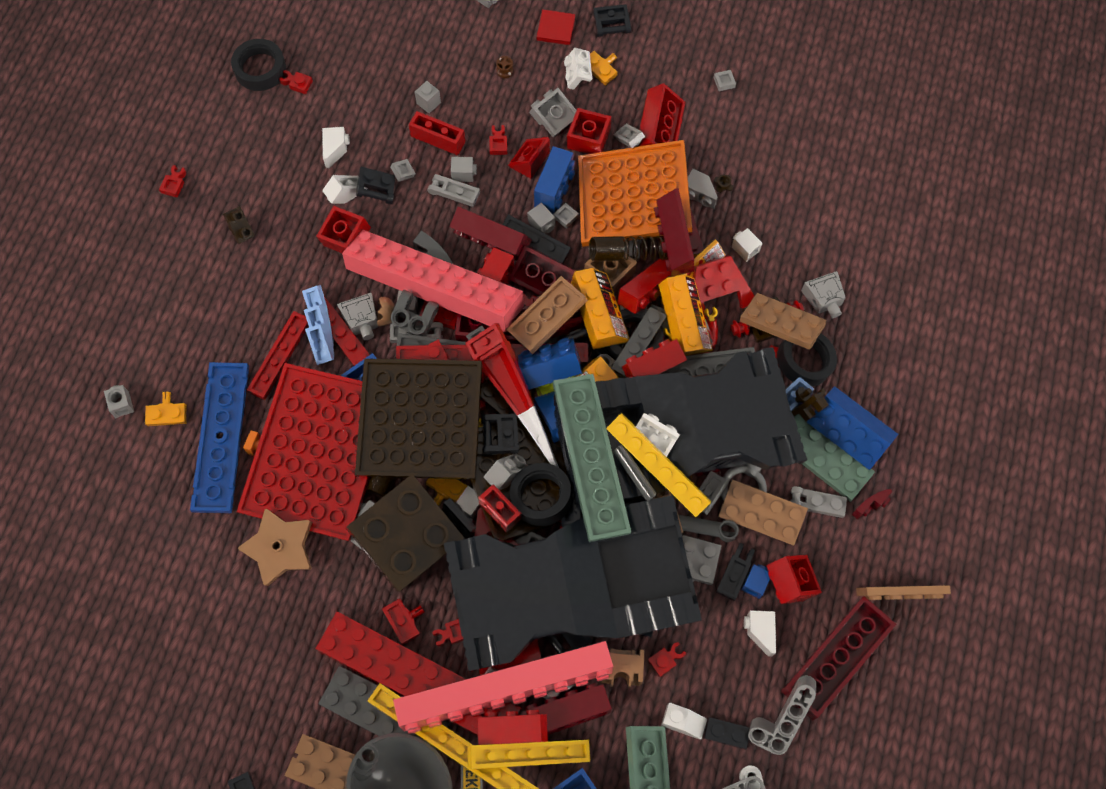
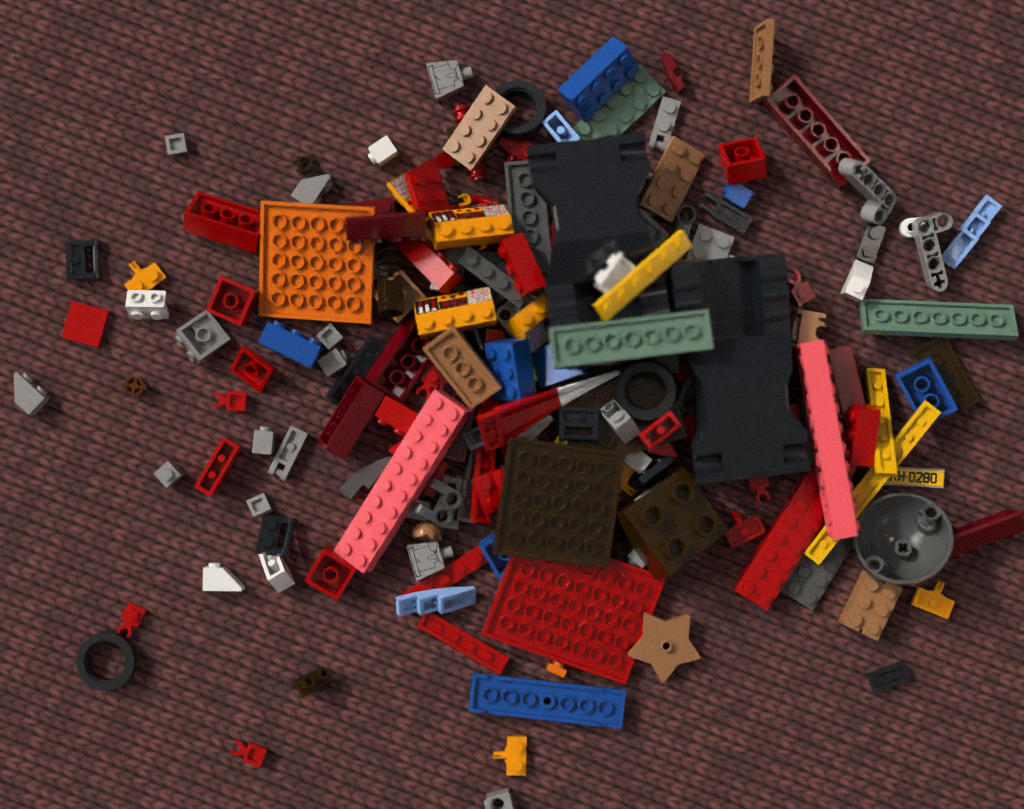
camera: 85 degrees left, 20 degrees up
(629, 136) = (242, 258): light grey plate -> none
(634, 472) = (648, 298): dark grey axle -> none
(761, 630) = (781, 197): white slope -> none
(804, 396) = (575, 117): dark brown hips -> none

